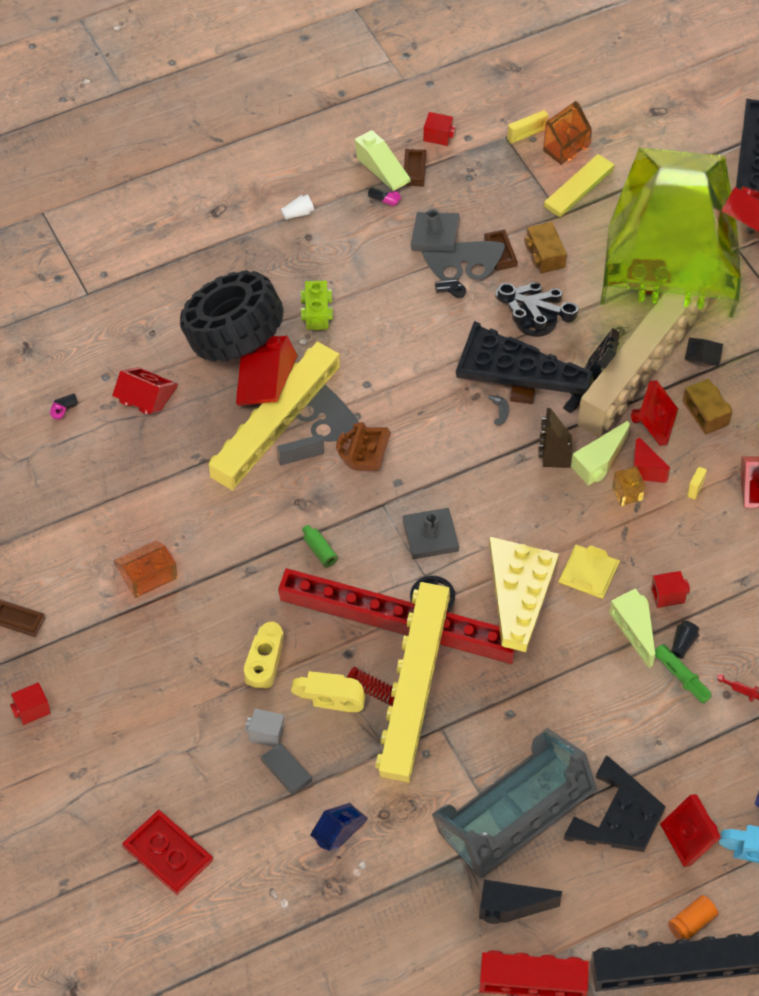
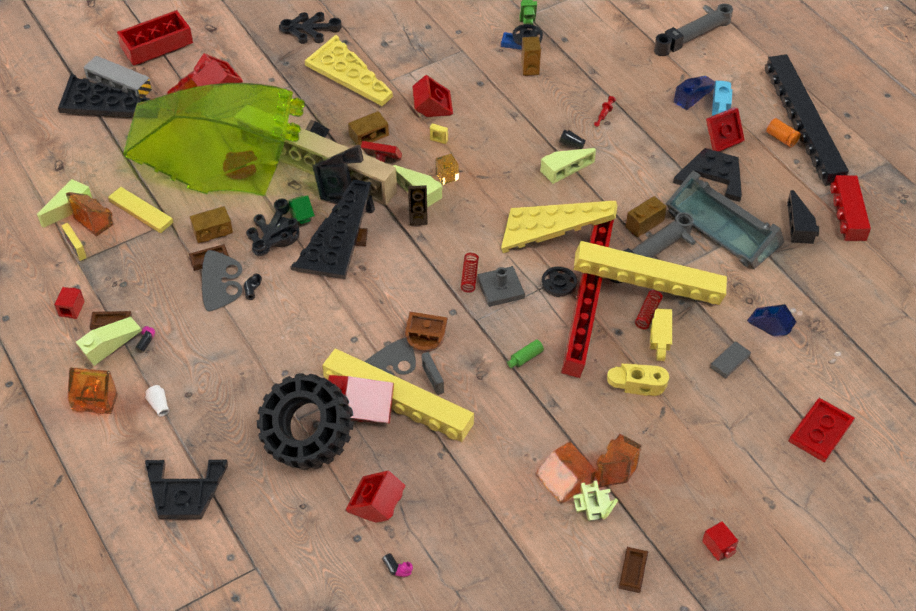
camera: 95 degrees left, 5 degrees down
(103, 592) = (588, 501): none -> yellowish green piece
(145, 610) = (618, 462): none -> clear orange slope
(175, 231) = (183, 496): none -> black wing
(265, 727) = (702, 372): light grey brick -> none
(309, 151) = (91, 391): none -> clear orange slope
(316, 301) = (269, 373): lime brick -> none
(435, 231) = (189, 299): dark grey tile -> none
(454, 678) = (679, 228): none -> dark grey piece
(473, 507) = (468, 272): none -> red piece
(503, 409) = (375, 248): dark grey piece -> none
(530, 705) = (645, 216): none -> pearl gold brick
(568, 331) = (301, 208): none -> green slope
(589, 570) = (519, 194): light yellow piece -> none
(600, 119) = (58, 206): none -> yellowish green slope
(649, 463) = (422, 160): red slope -> none
(669, 589) = (533, 147): red brick -> none
(683, 674) = (604, 137): bright green axle -> none

